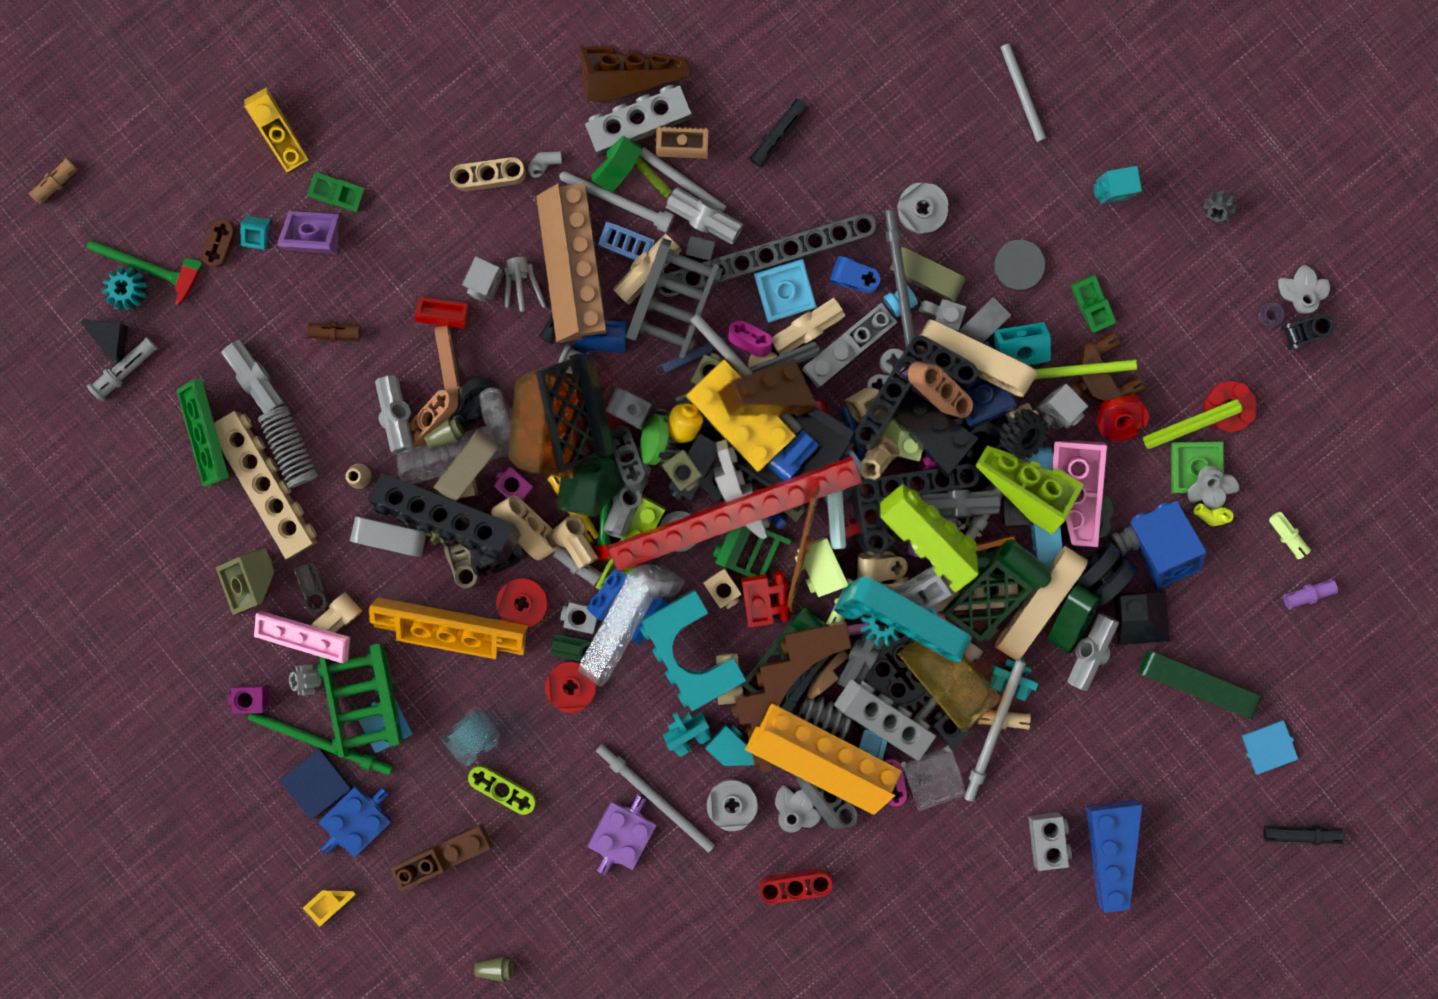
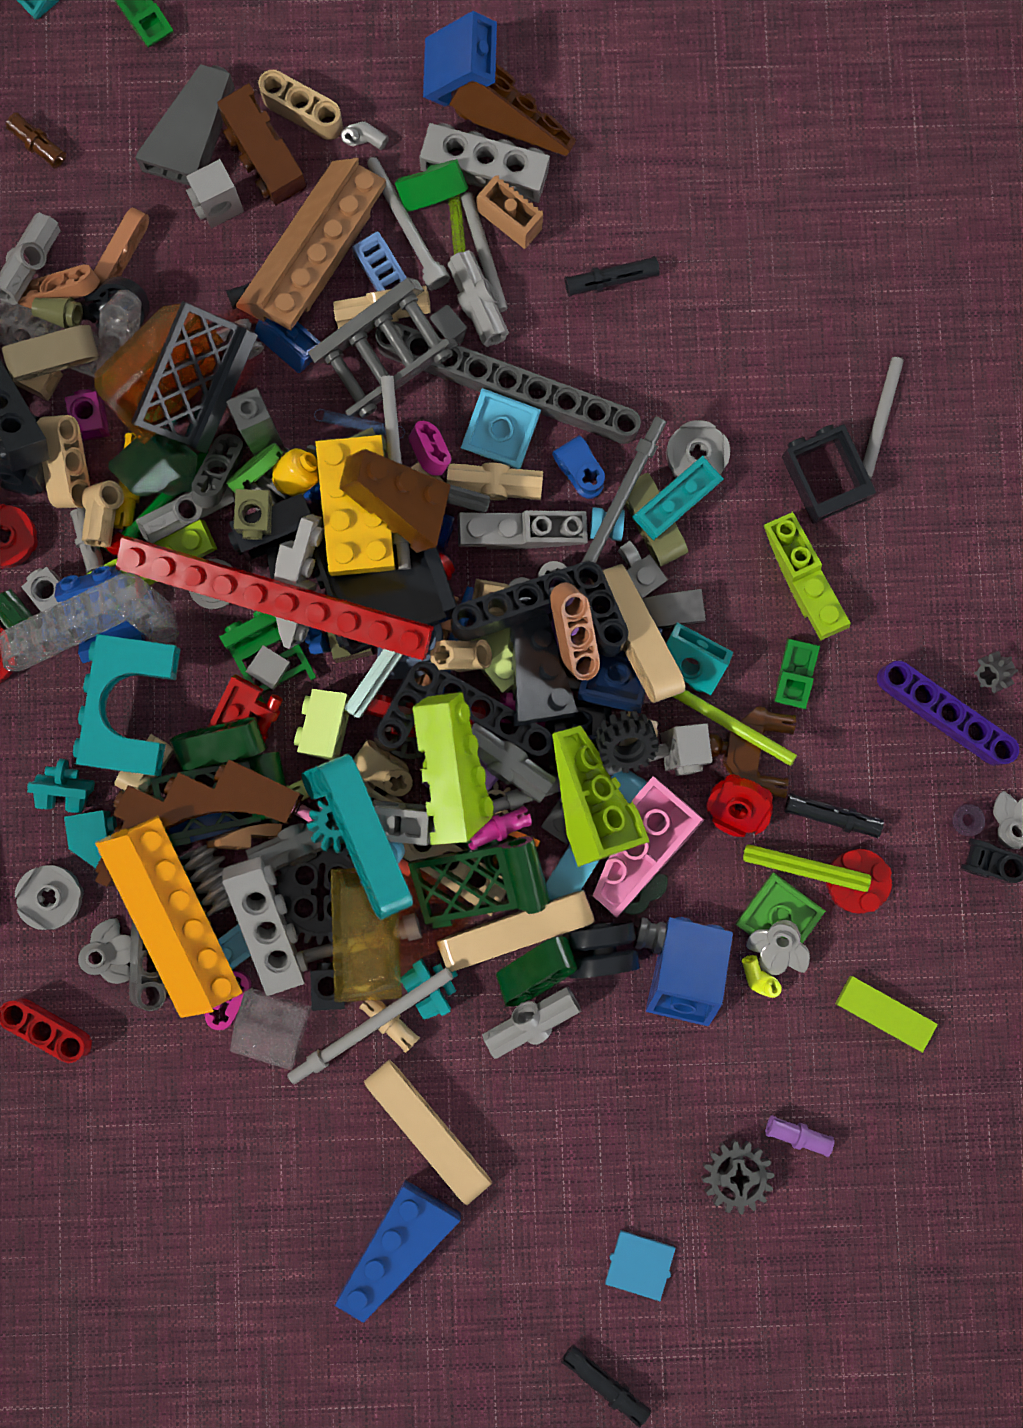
camera: 25 degrees right, 5 degrees down
(310, 232) = (87, 33): medium lavender slope -> none
(429, 248) = (189, 128): none -> dark grey slope
(442, 312) = (152, 200): red tile -> none
(487, 224) = (260, 146): none -> reddish brown wedge
(518, 270) = (256, 216): light grey plant -> none
(572, 65) = (459, 55): none -> blue panel
(717, 579) = (201, 661): tan brick -> none
(757, 558) = (268, 667): none -> light grey tile
(765, 630) = (218, 744): none -> dark green beam
(789, 461) = (374, 588): blue piece -> none
(805, 546) = (318, 684): dark orange piece -> none
(935, 249) = (677, 498): none -> teal tile
(985, 545) = (500, 826): none -> dark pink pin
(1019, 265) = (751, 580): dark grey tile -> none
(1043, 842) = (333, 1183): light grey brick -> none
(1048, 154) = (863, 486): none -> black window
(1052, 237) = (804, 576): none -> lime slope
(1079, 767) = (428, 1132): none -> tan beam
(1117, 185) = (908, 572): teal brick -> none
(1141, 617) = (609, 1028): black slope -> none
(1194, 372) = (844, 818): none -> black pin
(1199, 684) = (616, 1142): dark green beam -> none
(1220, 254) = (962, 714): none -> dark purple beam
(1282, 655) = (723, 1176): none -> dark grey gear
(1289, 534) = (822, 1057): yellowish green axle -> none
(1308, 477) = (886, 1014): none -> lime tile

